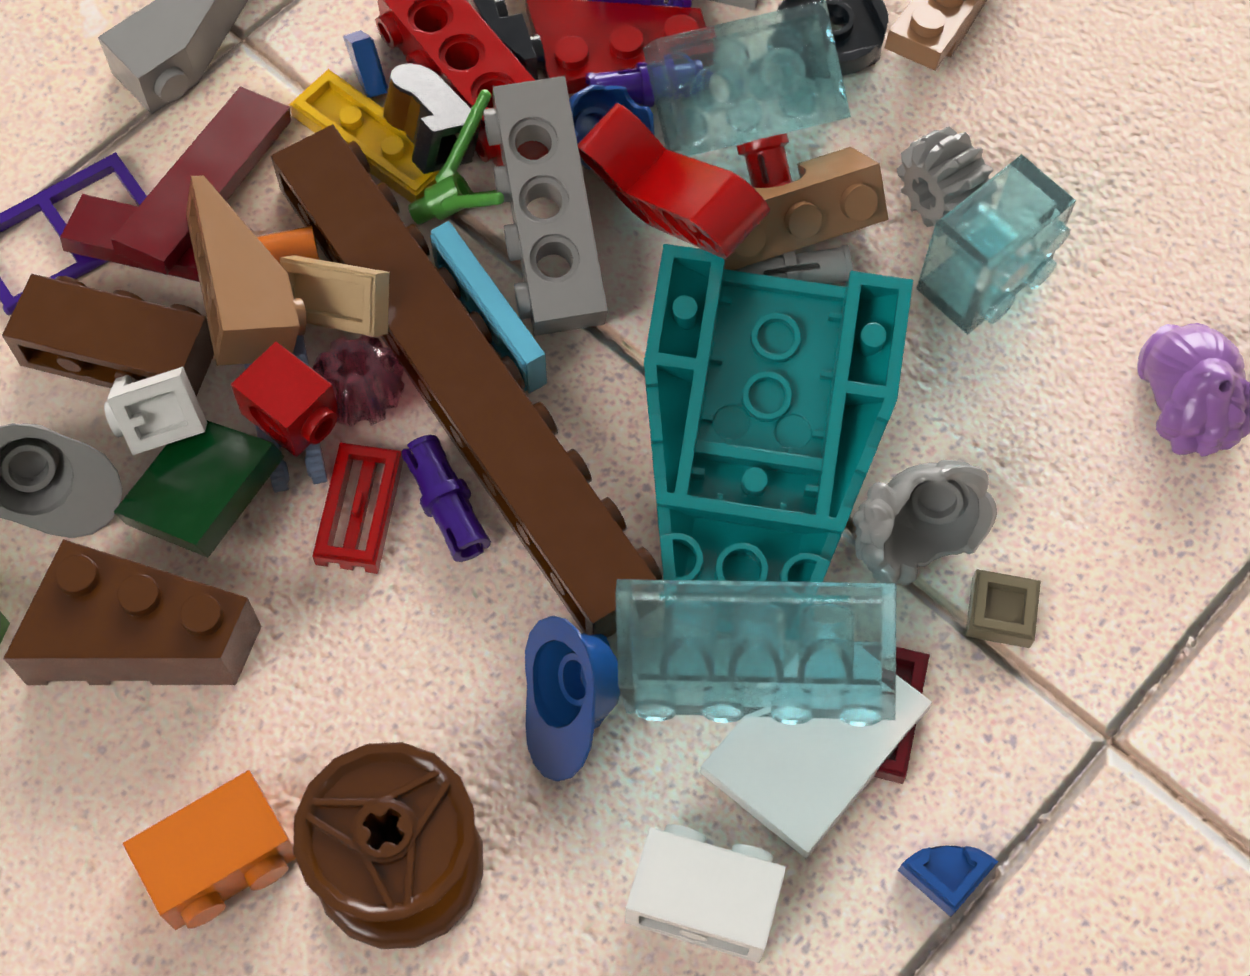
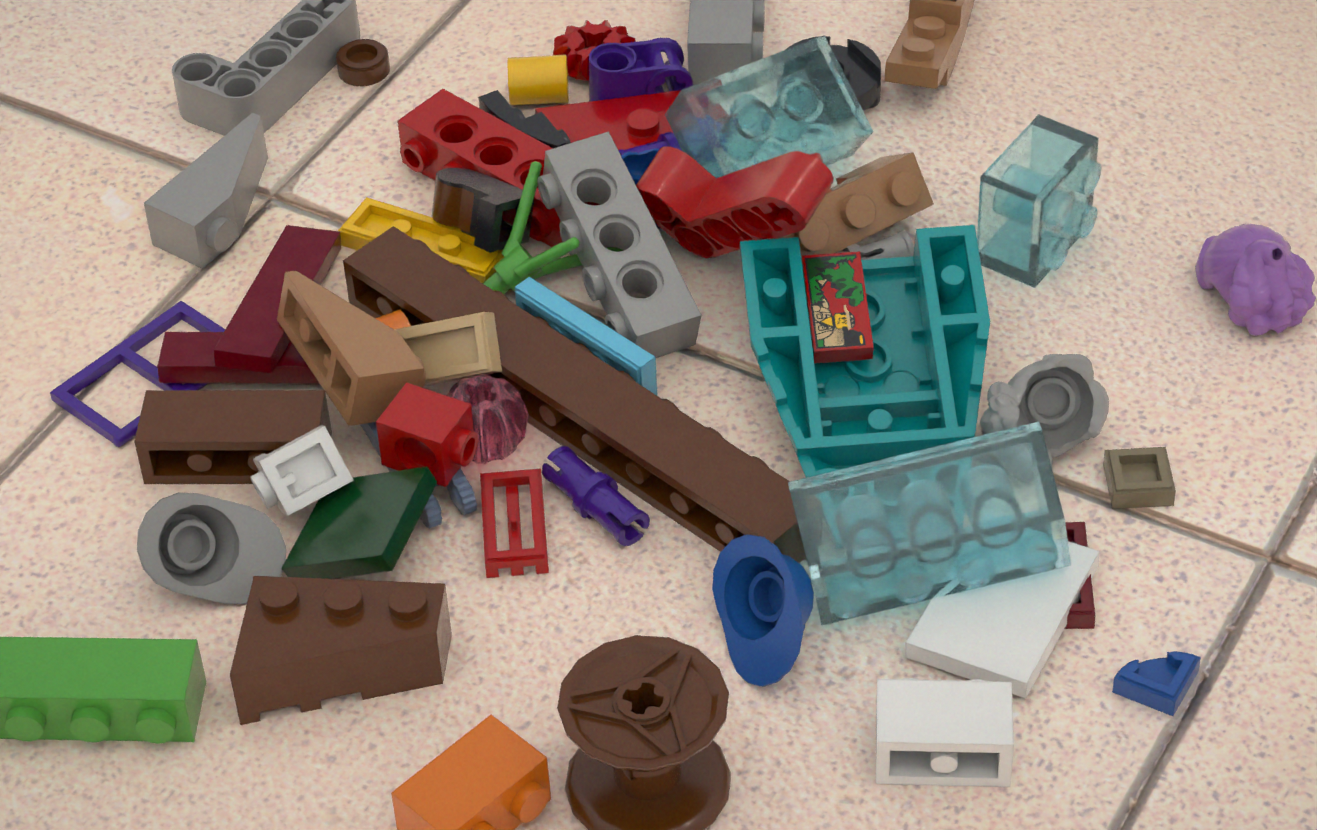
camera: 10 degrees left, 20 degrees down
(366, 63) = (400, 184): blue tile -> none
(748, 334) = (837, 307): none -> tile
(941, 173) = (963, 156): light grey gear -> none

